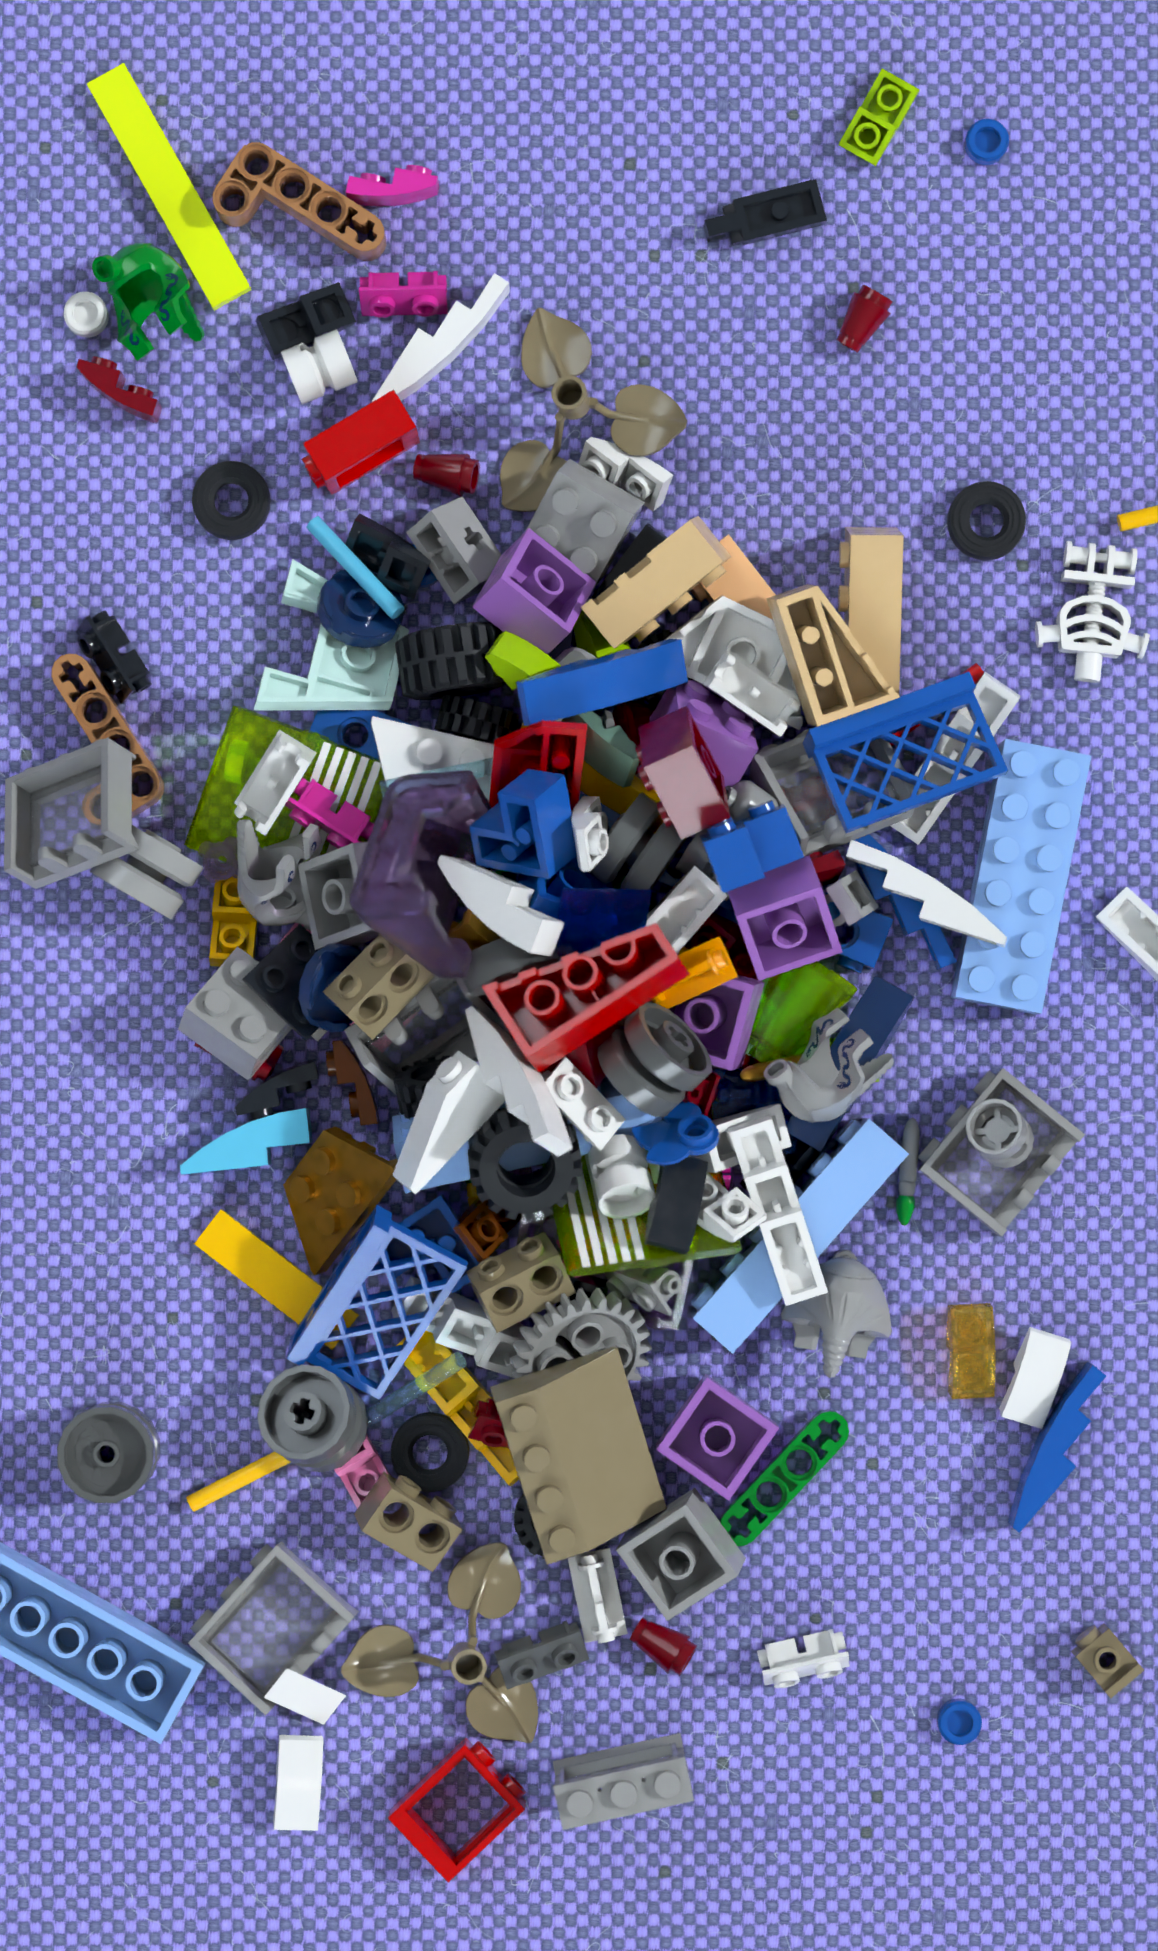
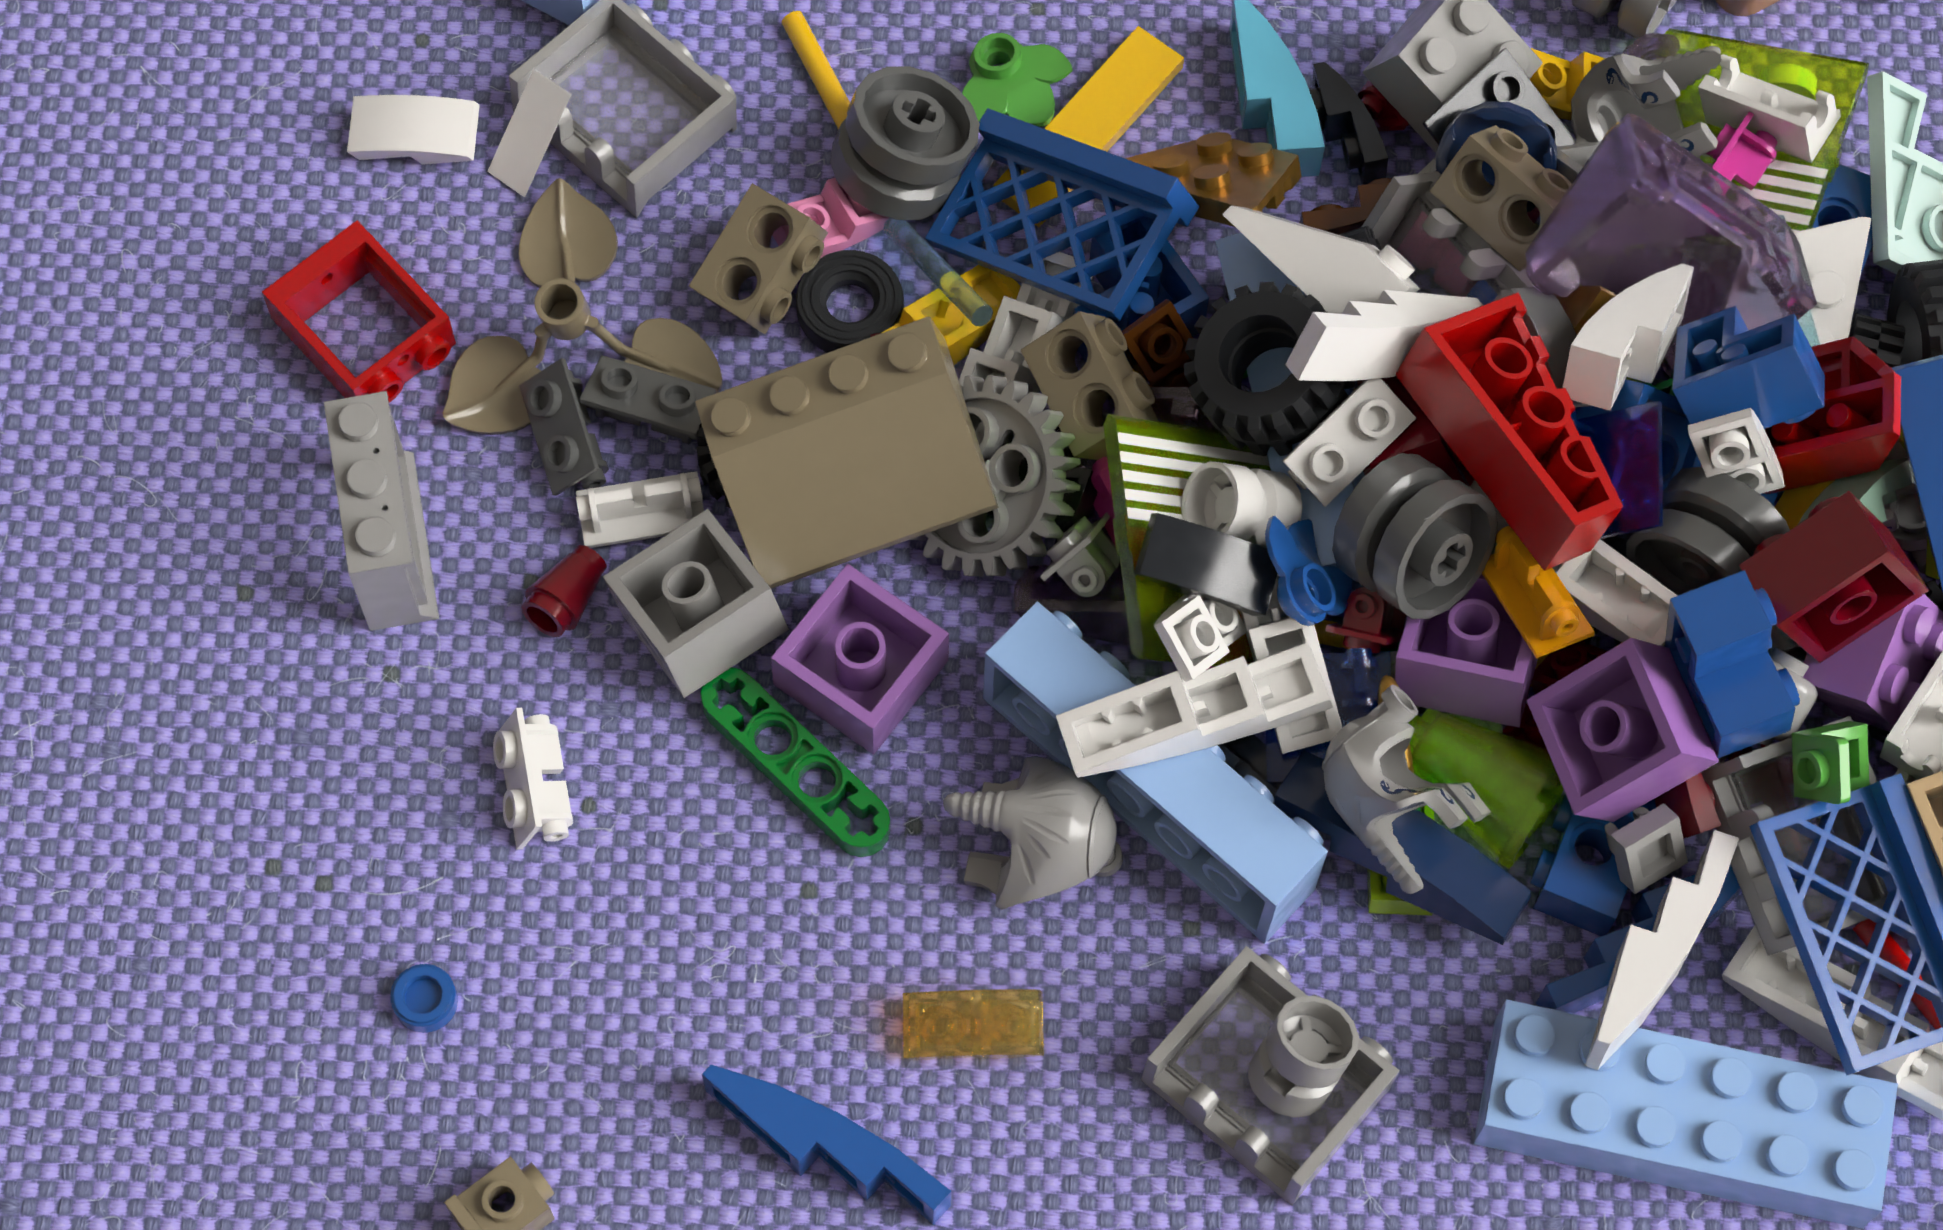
camera: 90 degrees right, 20 degrees down
(251, 1334) = (1018, 86): none -> bright green plate
(517, 1596) = (646, 396): none -> dark grey hinge
(797, 775) = (1830, 761): none -> bright green bracket
(908, 1171) = (1194, 943): light grey piece -> none
(1036, 1377) = (931, 1117): white slope -> none

